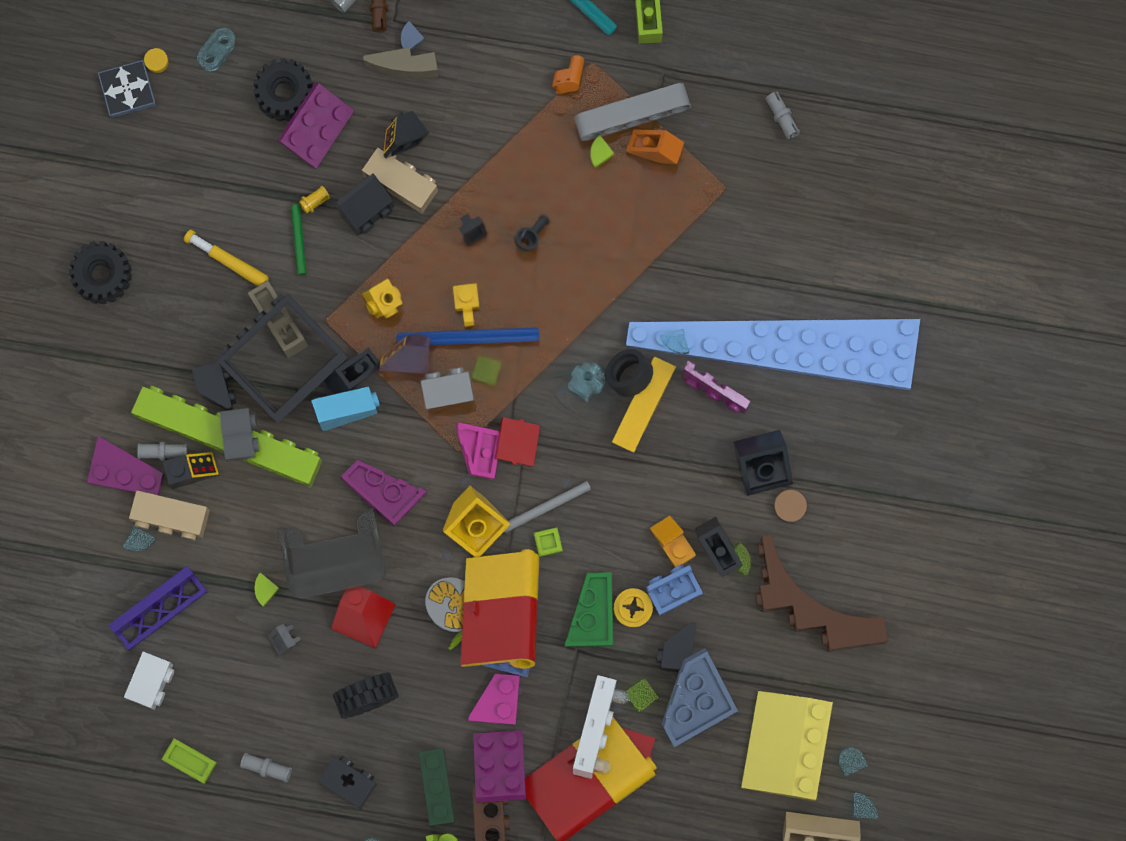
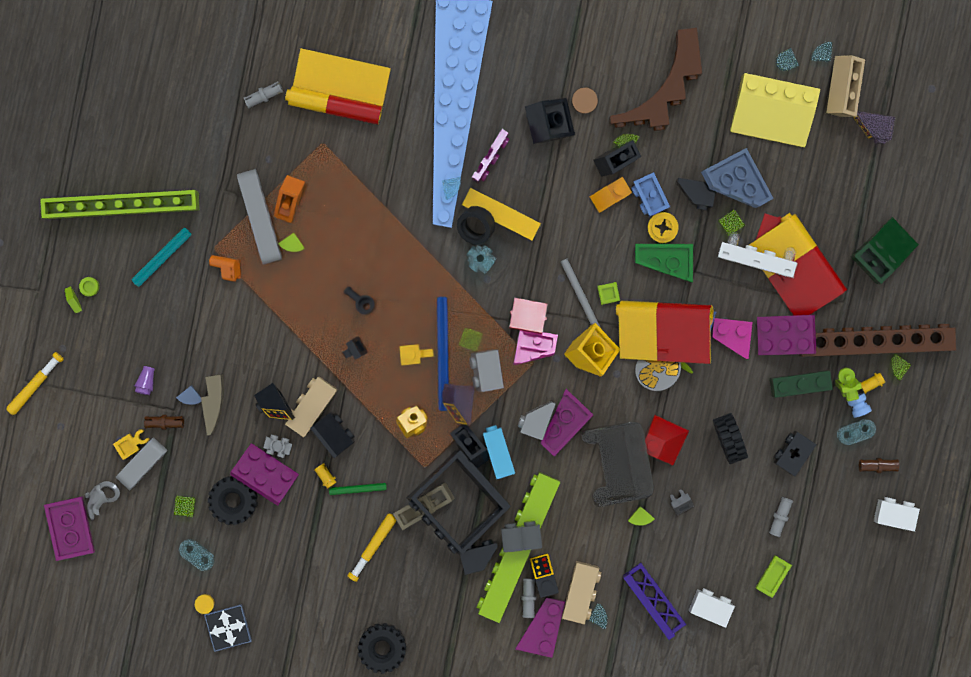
camera: 90 degrees left, 10 degrees up
(276, 35) = (184, 506): none -> clear neon green tile
(350, 146) = (281, 446): none -> light grey piece
(384, 453) = (536, 420): none -> light grey slope
(795, 205) = (339, 86): none -> yellow door

